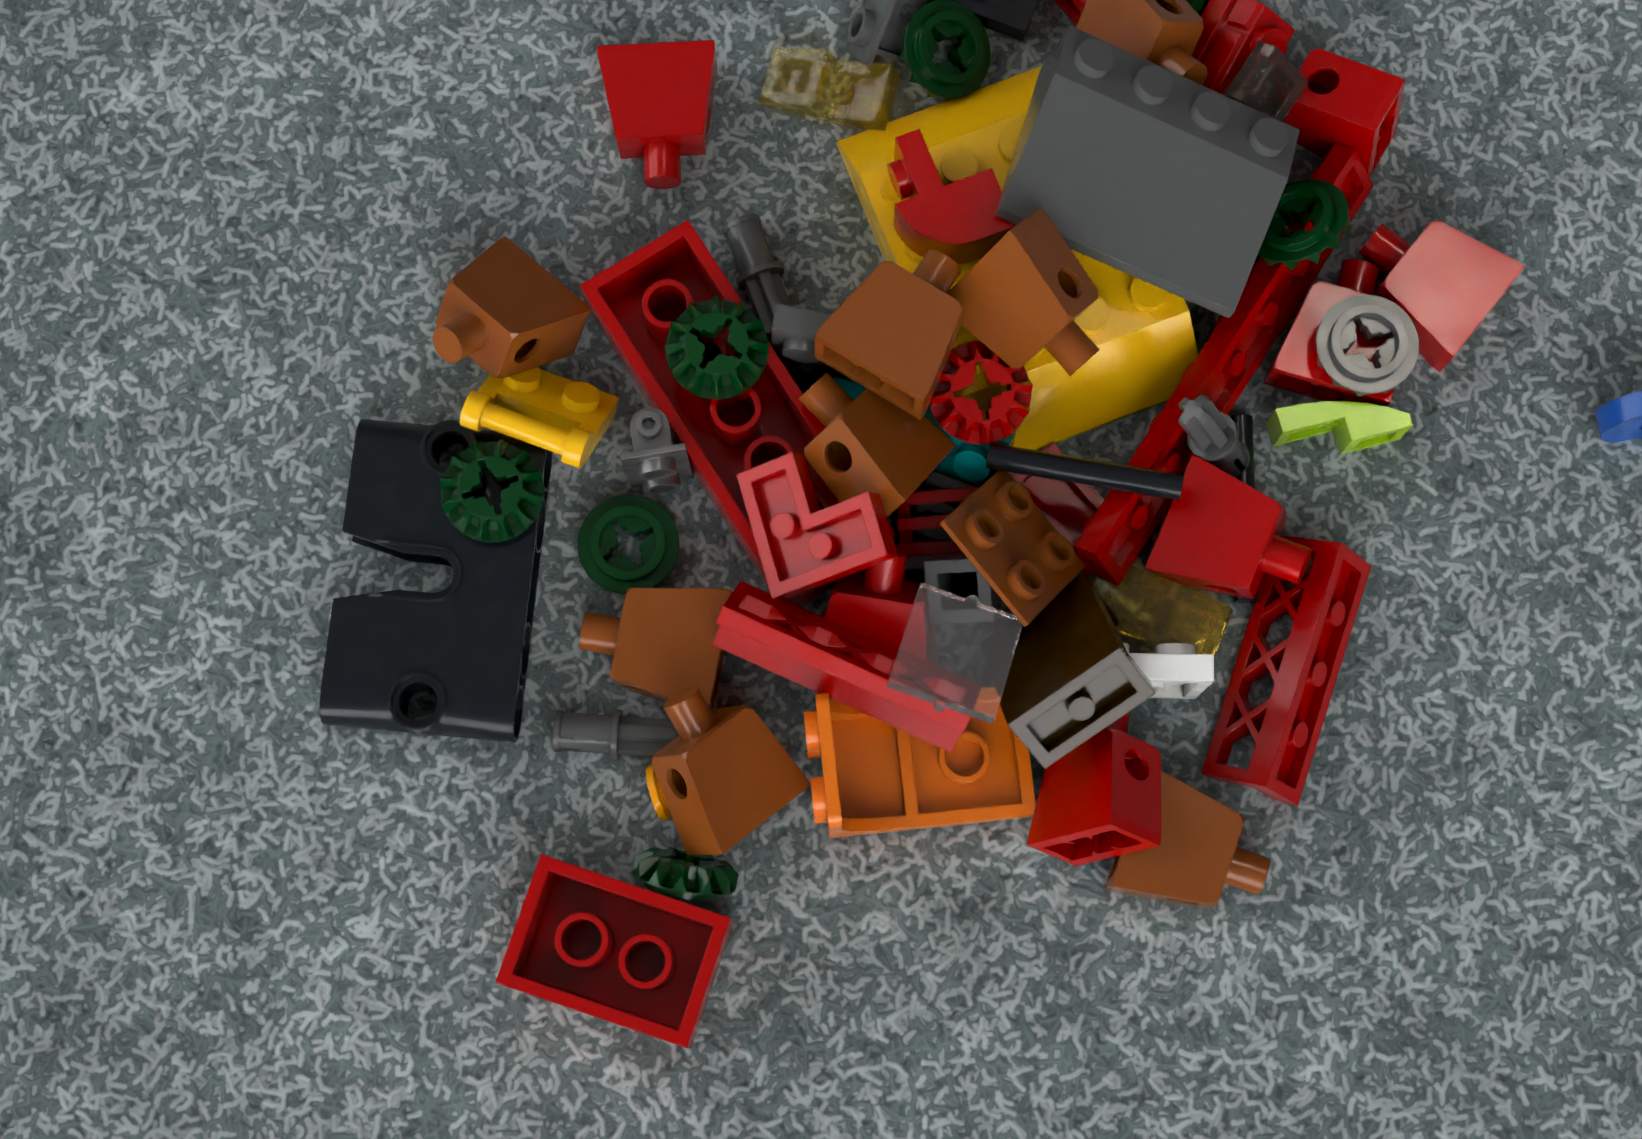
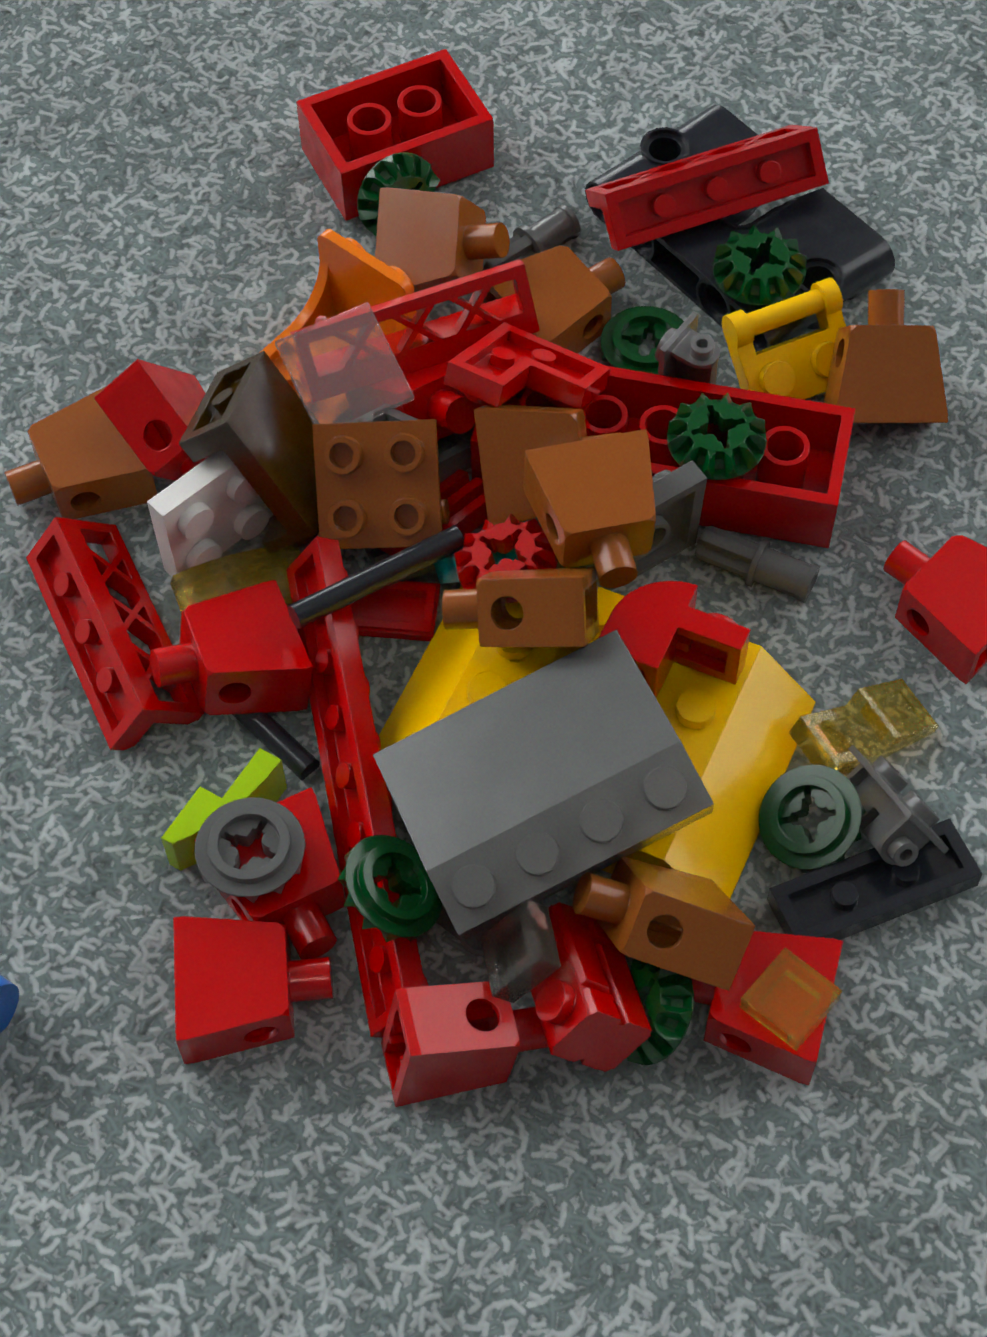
camera: 135 degrees right, 20 degrees down
(442, 596) = (710, 185): none -> red fence
(1212, 435) = (308, 691): dark grey axle -> none

